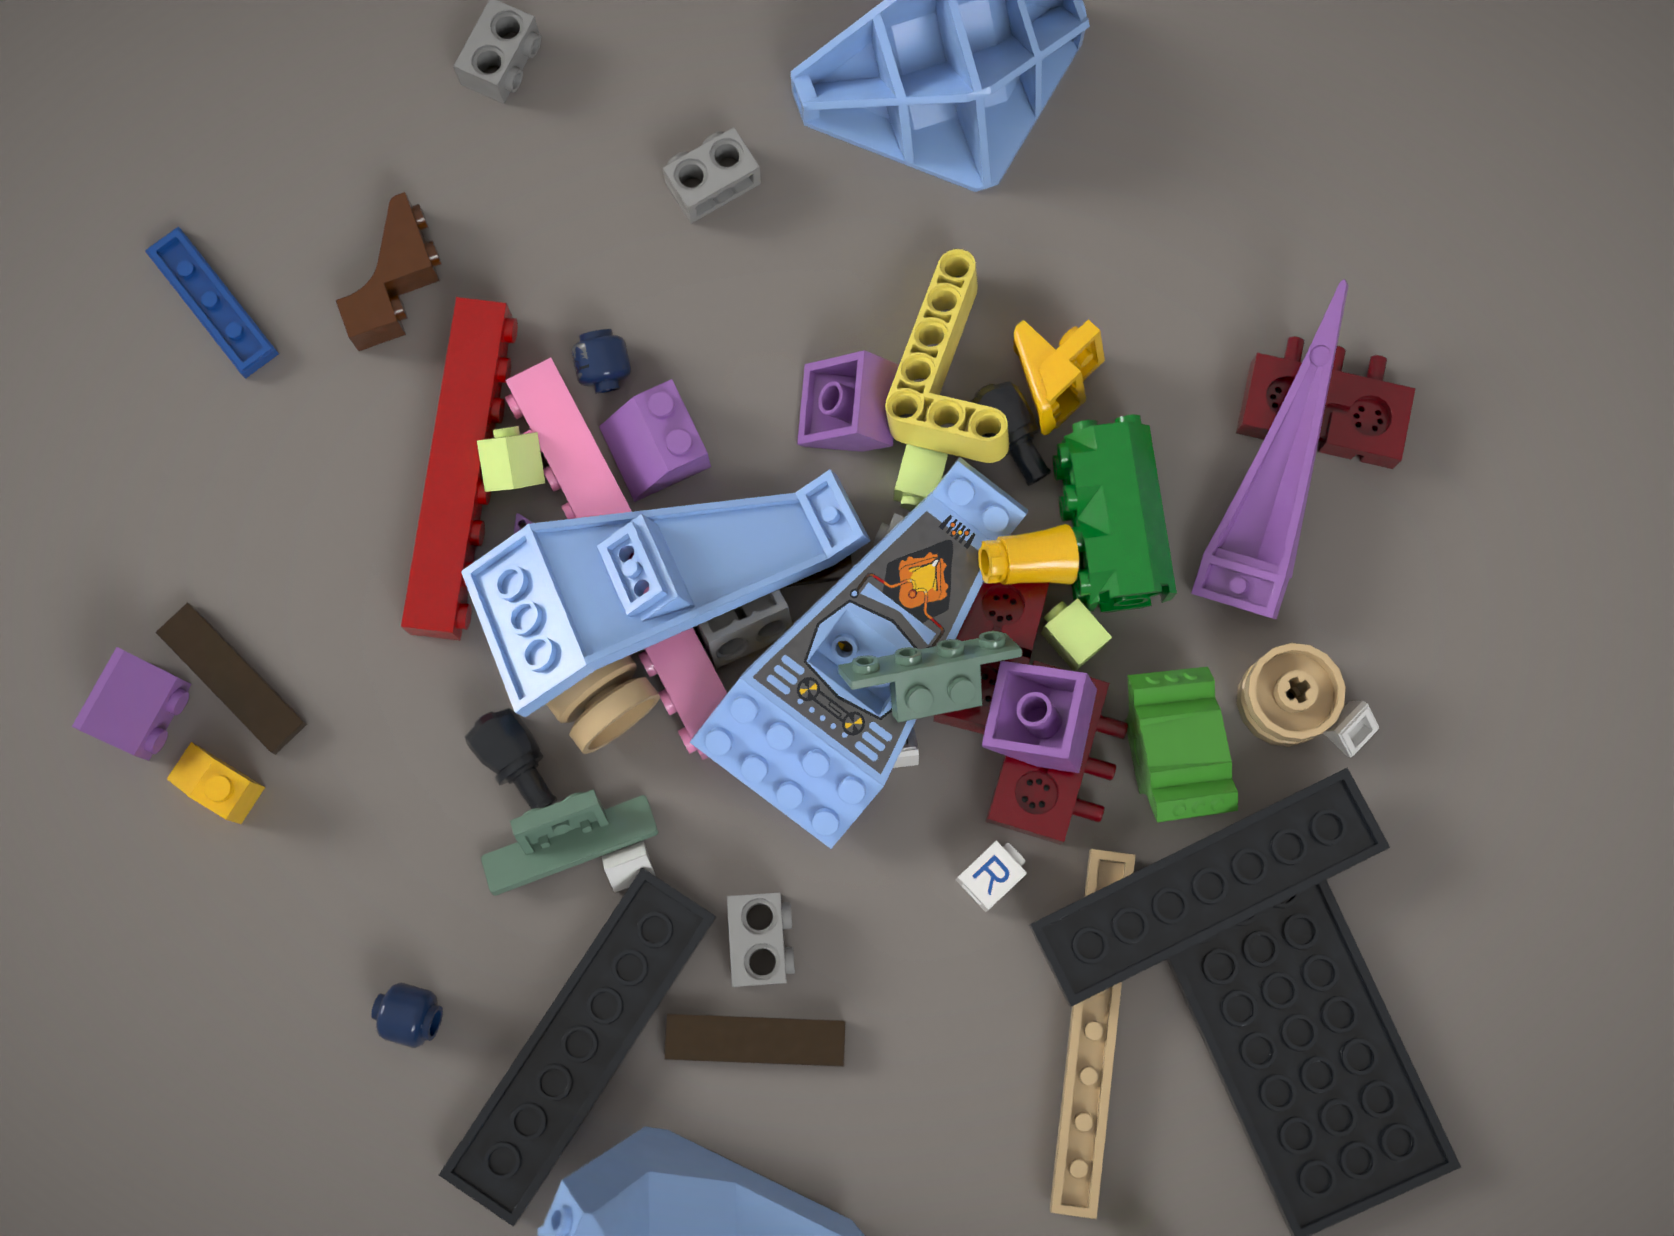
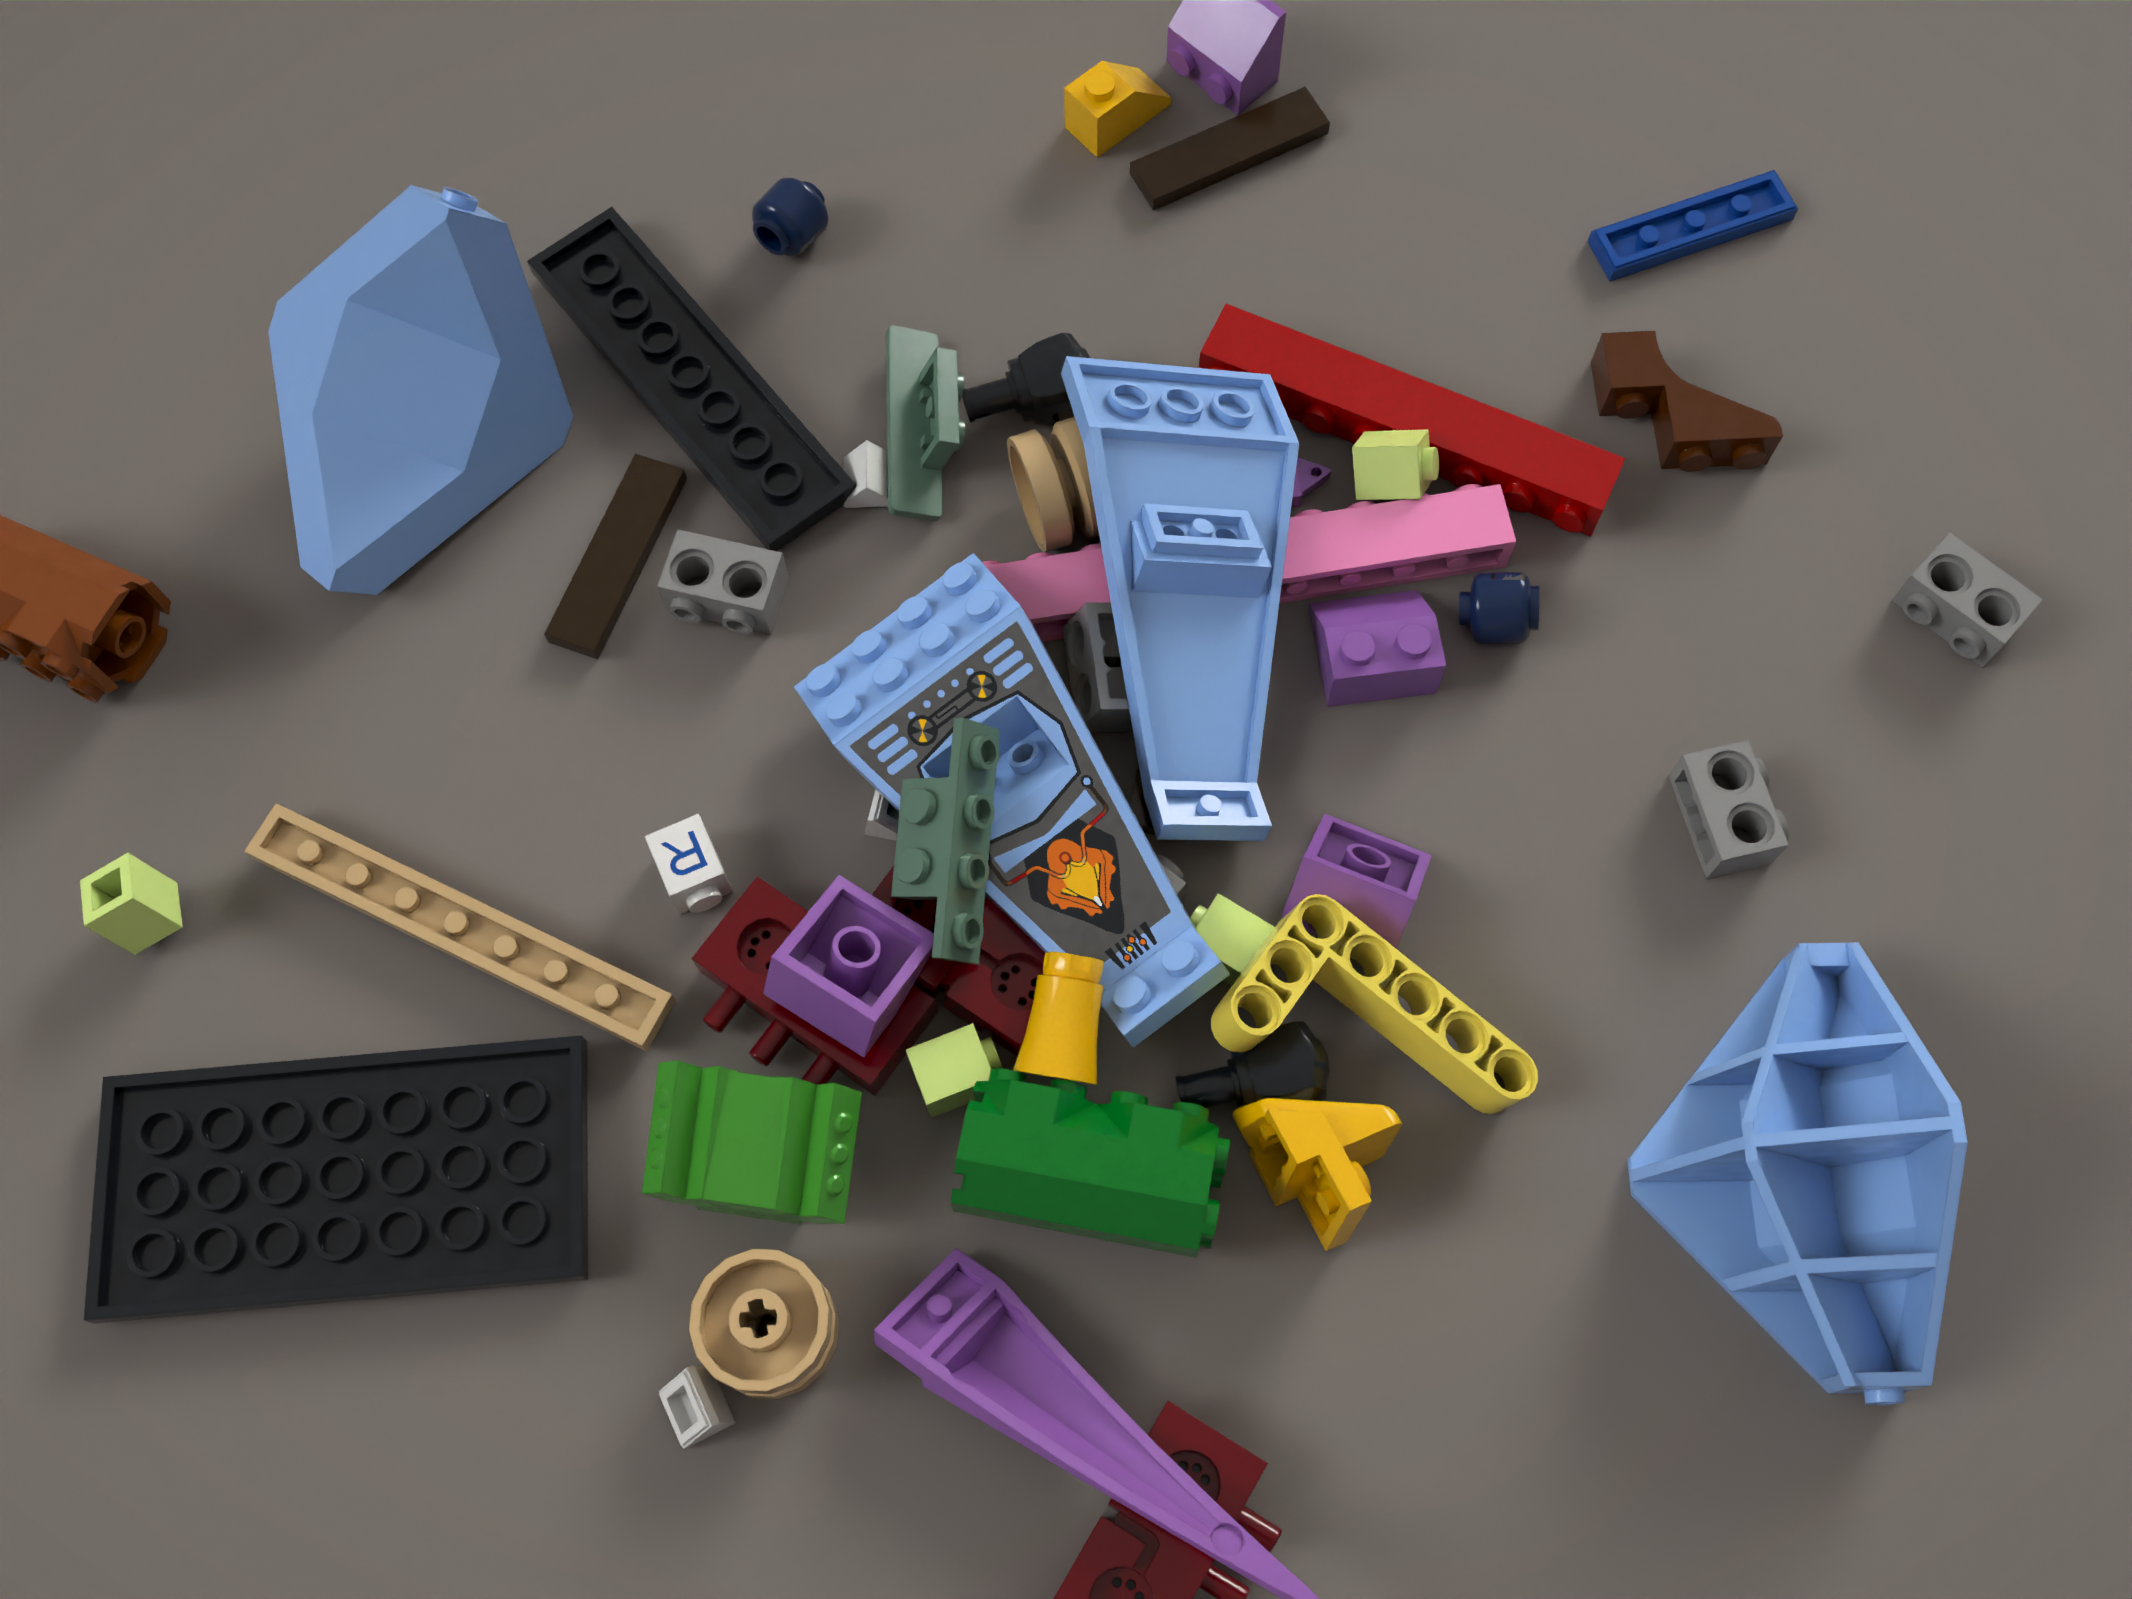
camera: 110 degrees right, 10 degrees down
(1208, 887) = (559, 1127): black plate -> none

